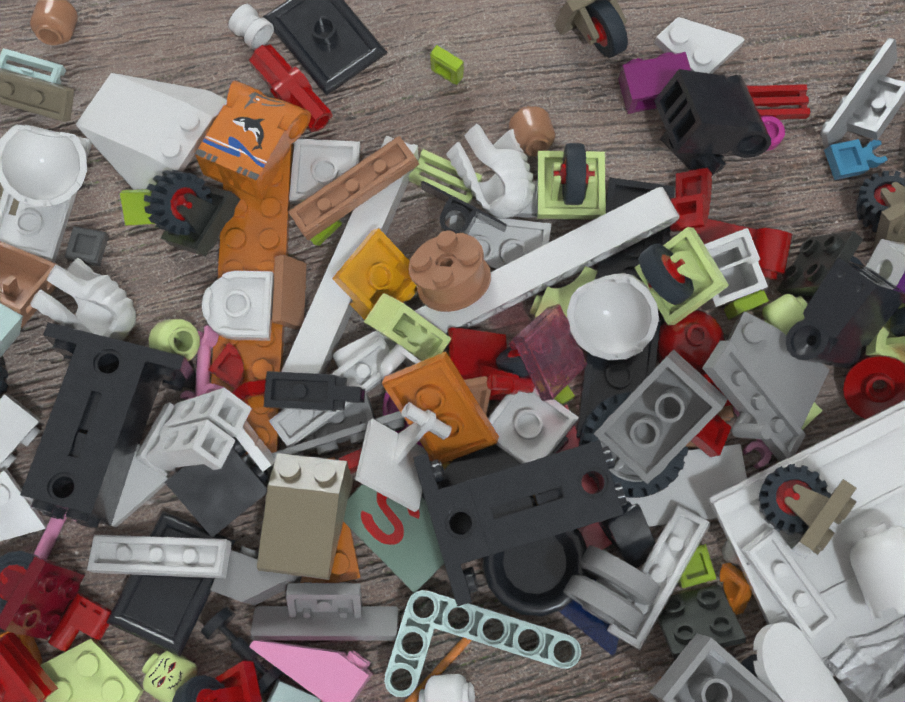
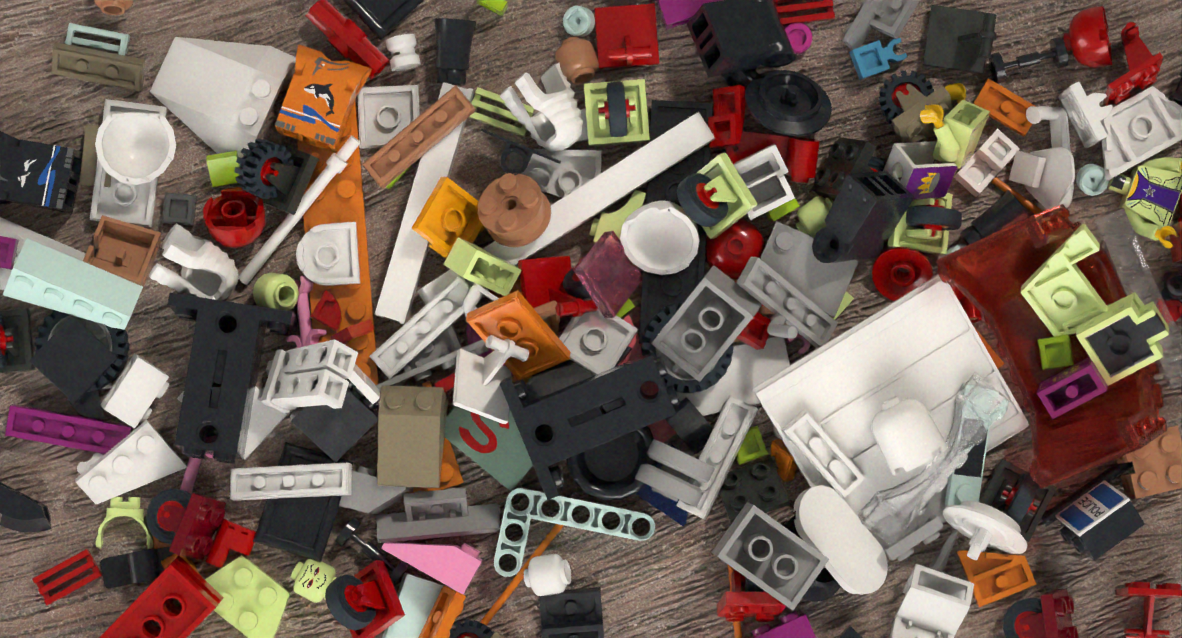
camera: 10 degrees left, 10 degrees up
(141, 257) = (234, 217): none -> red cylinder
(258, 208) = (335, 164): none -> white bar
(289, 292) = (371, 236): nougat tile -> none
(309, 391) = (403, 330): black hinge -> none
(347, 103) = (403, 52): none -> white wheel
(401, 103) = (453, 49): none -> black plant
(537, 92) = (578, 21): none -> light aqua tile
(586, 113) = (626, 36): none -> red plate
(760, 190) = (788, 102): none -> black piece
(799, 503) = (825, 388): plate -> none

